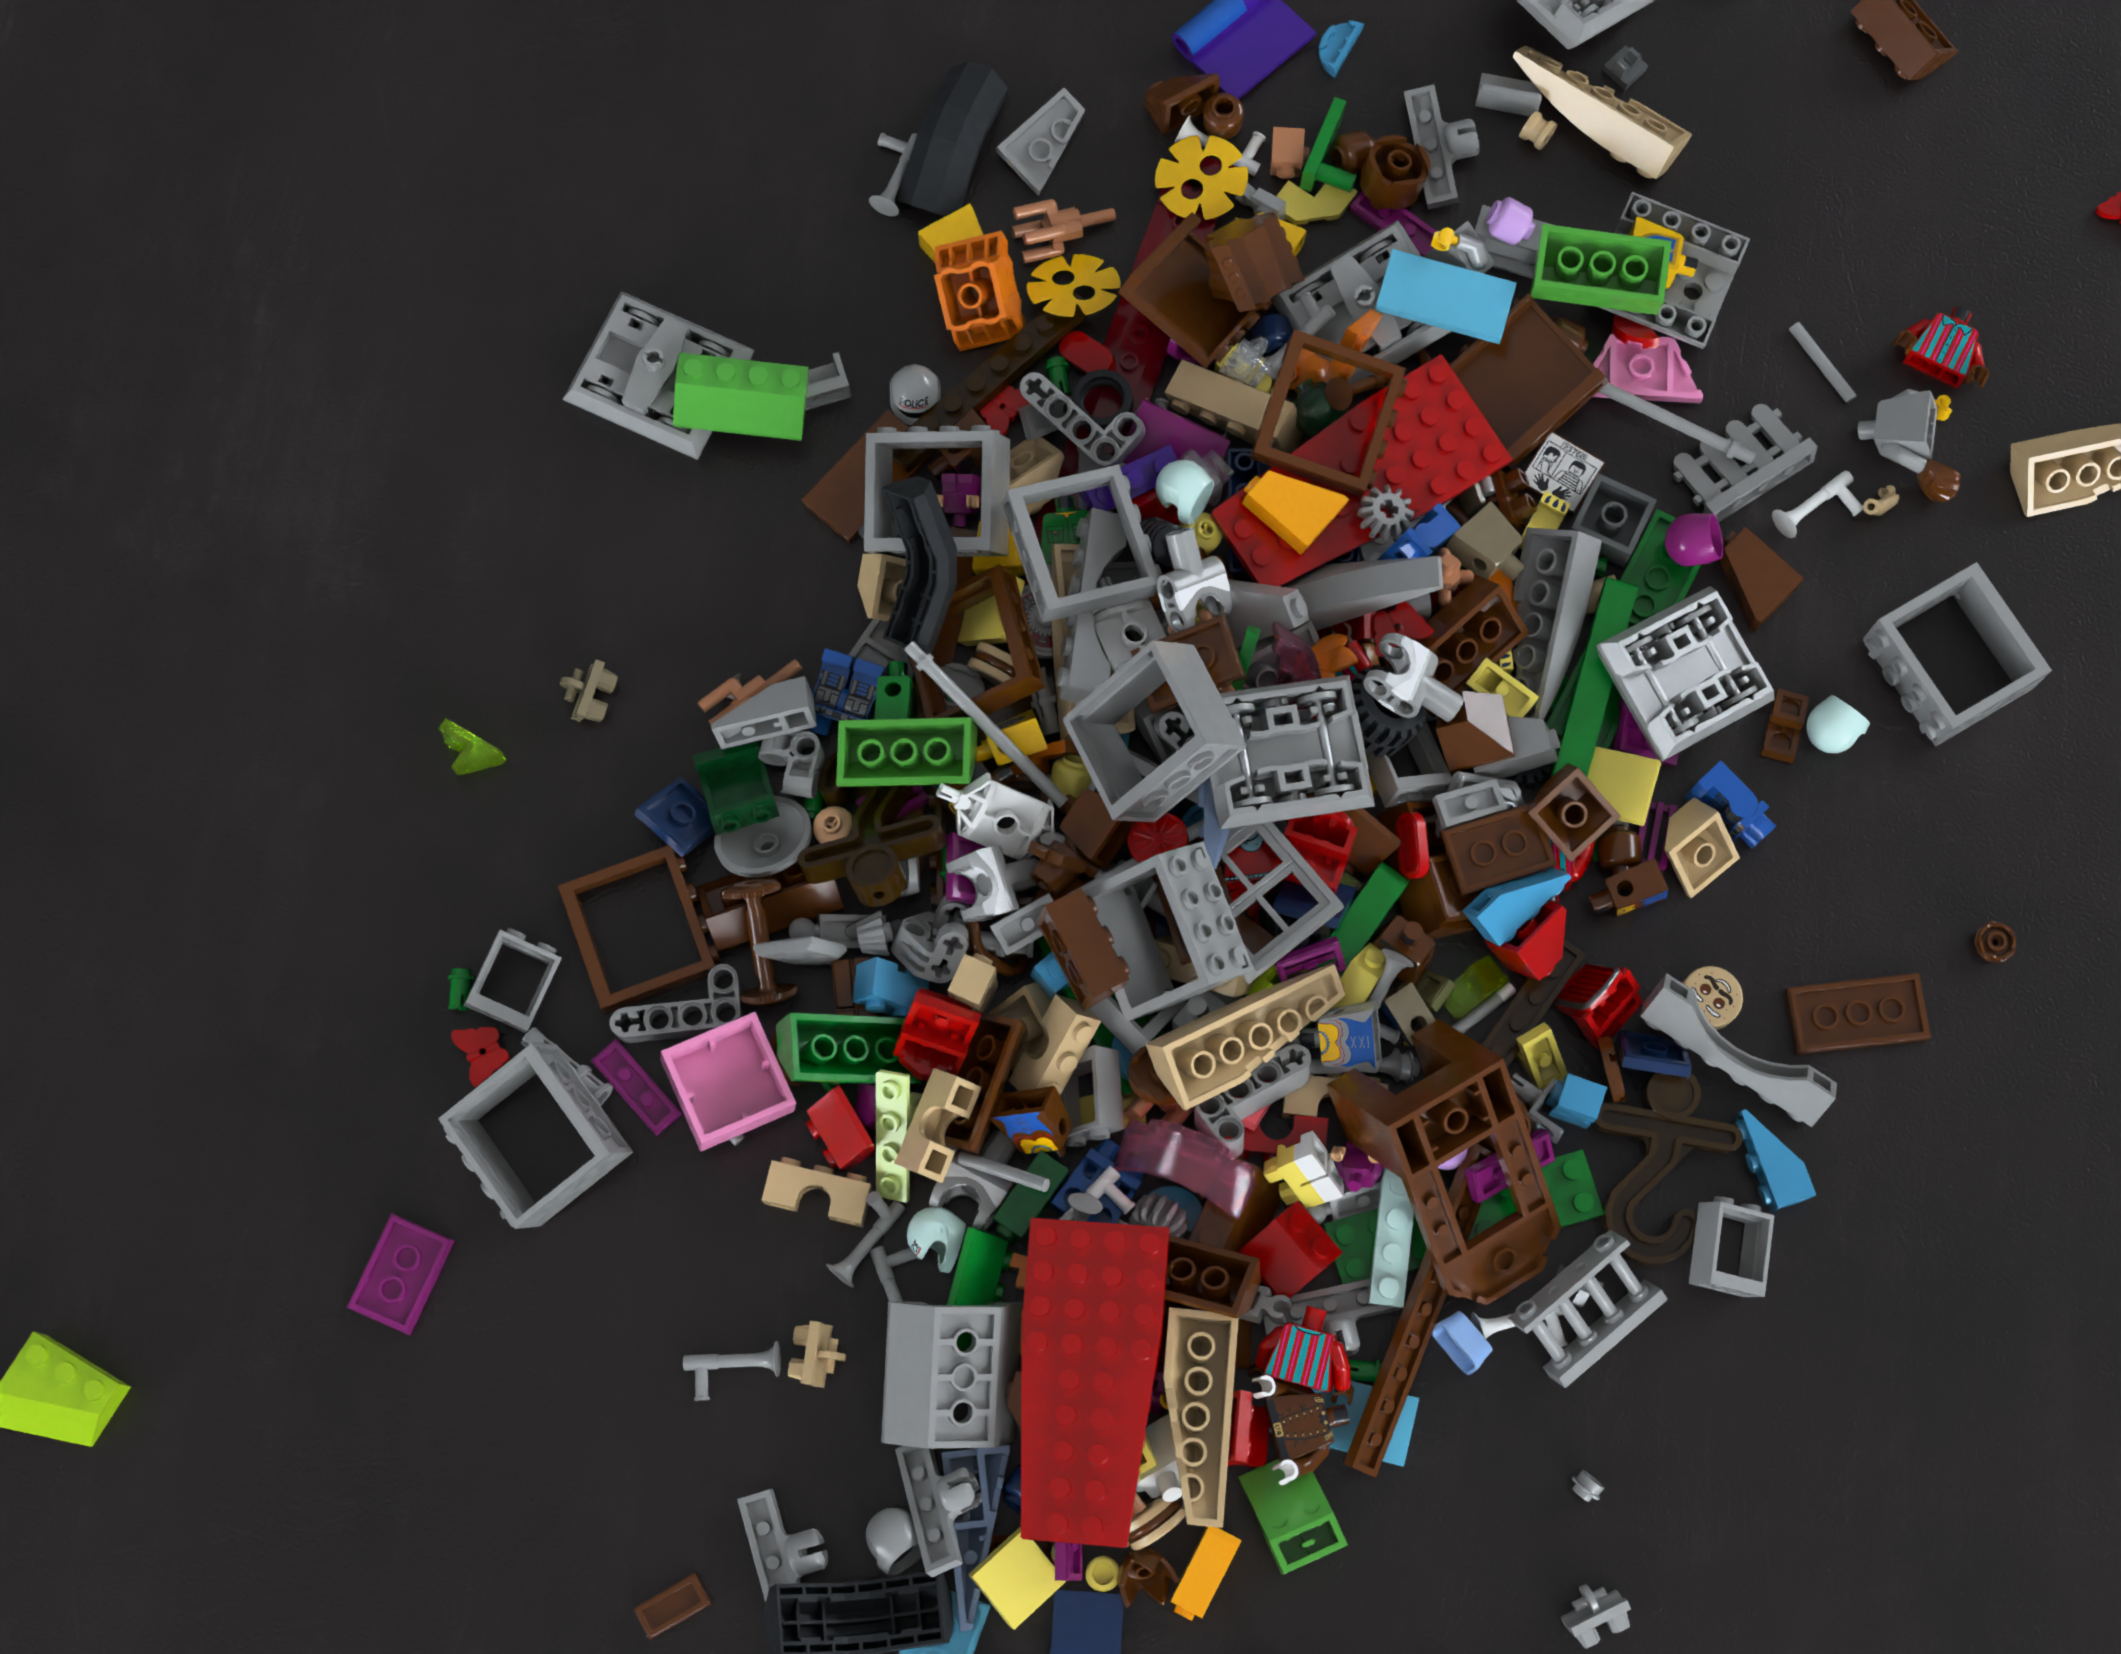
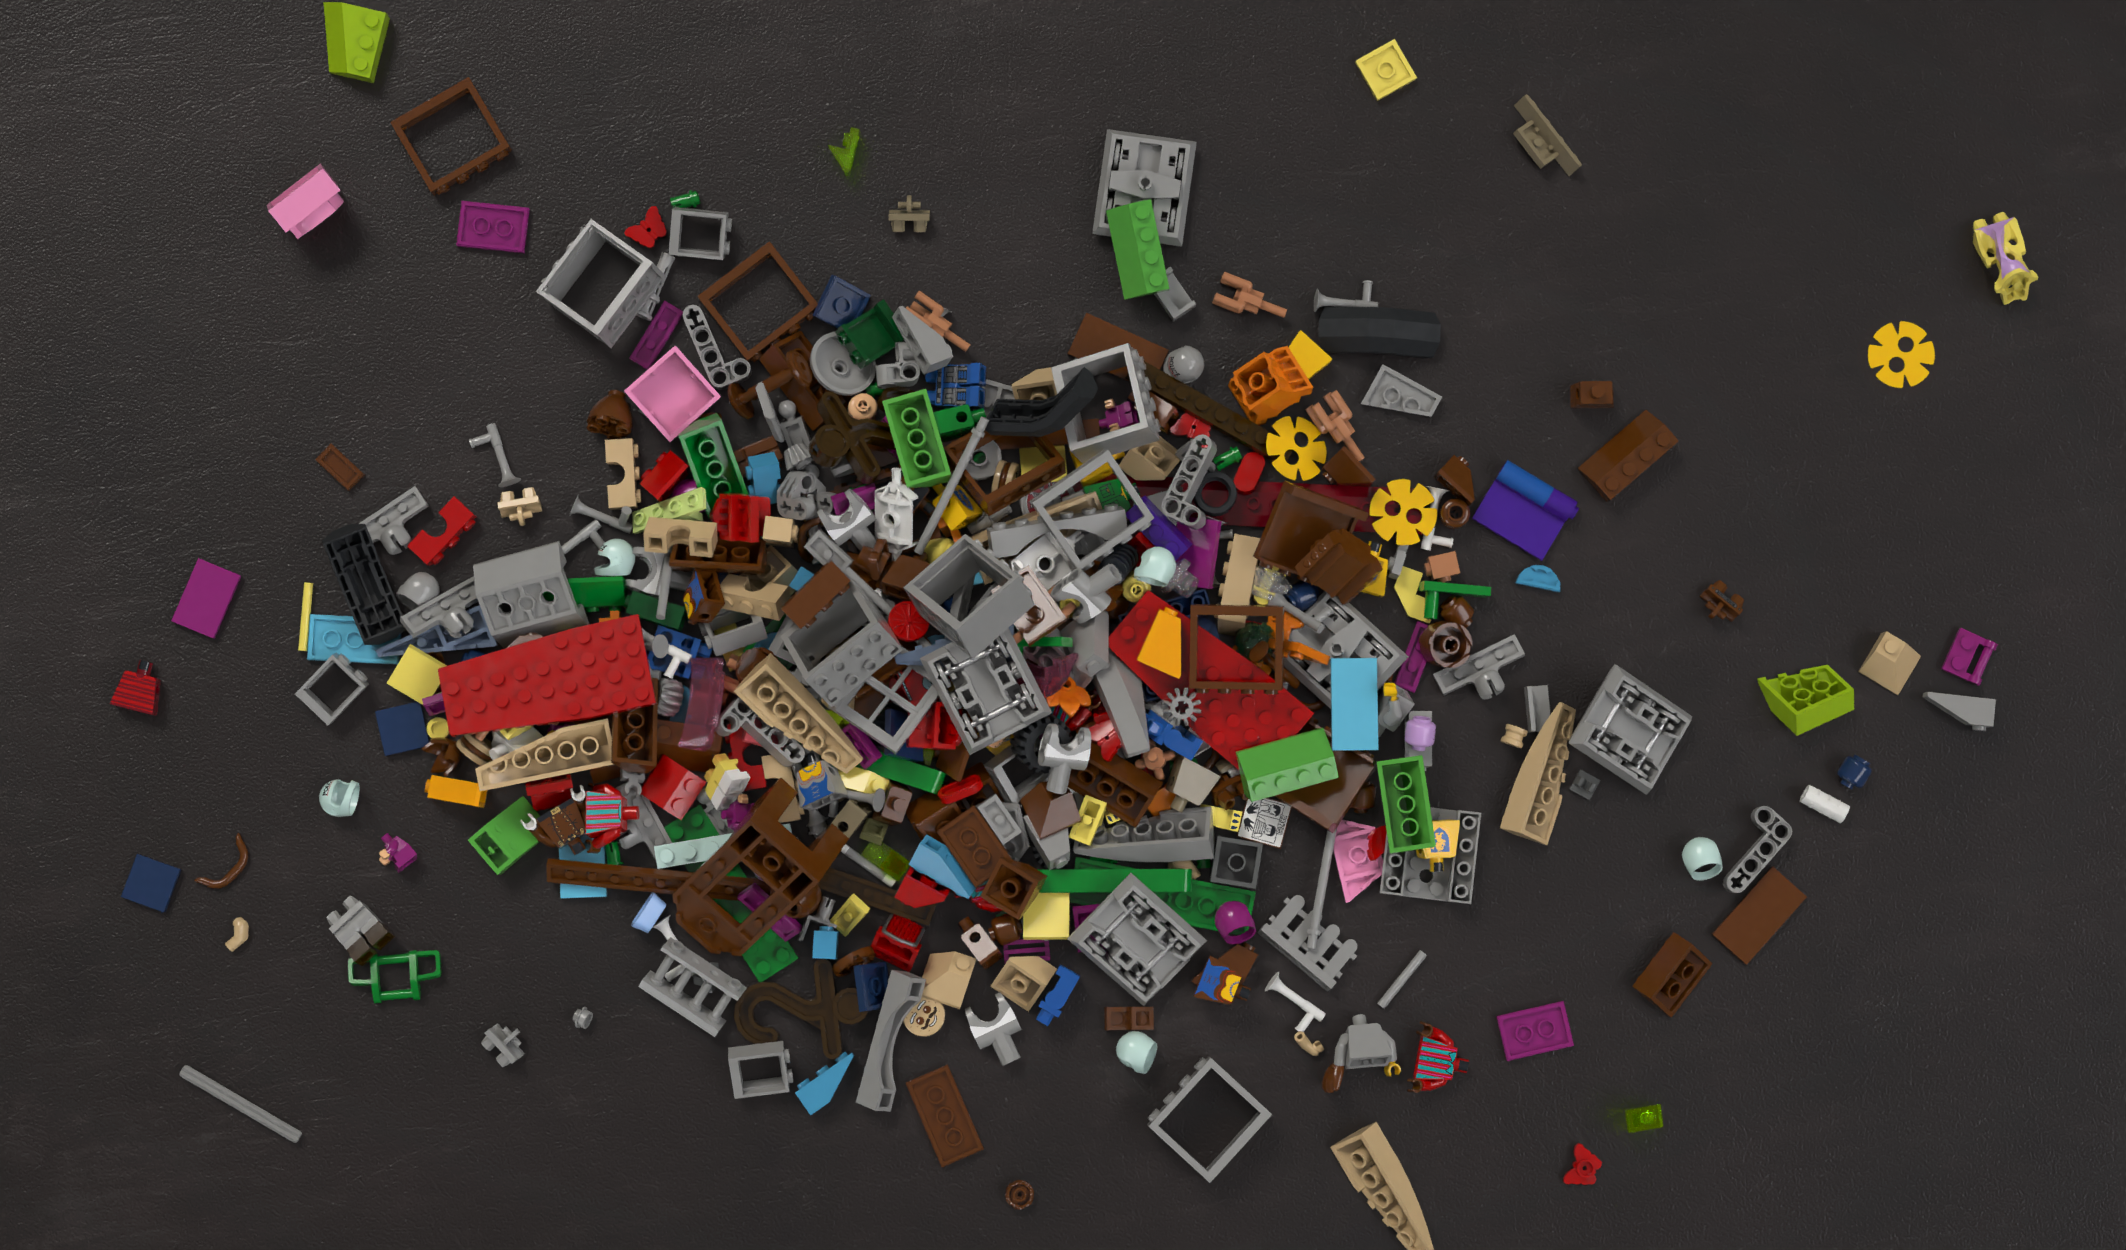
camera: 65 degrees right, 10 degrees up
(194, 1303) = (430, 107): none -> reddish brown window
(265, 1530) = (306, 202): none -> bright pink container
(610, 38) = (1385, 70): none -> light yellow tile
(730, 1182) = (611, 416): none -> reddish brown piece
(835, 1504) = (458, 519): none -> red arch
(850, 292) = (1245, 297): none -> nougat plant
(1122, 227) = (1346, 470): none -> reddish brown slope
(1503, 406) = (1286, 764): none -> bright green slope
(1667, 944) = (947, 977): none -> tan slope
(1757, 905) = (997, 1031): none -> light grey connector
(1774, 582) = (1220, 983): none -> torso
(1934, 219) = (1534, 1030): none -> magenta tile
(2086, 122) = (1643, 1118): none -> clear neon green slope

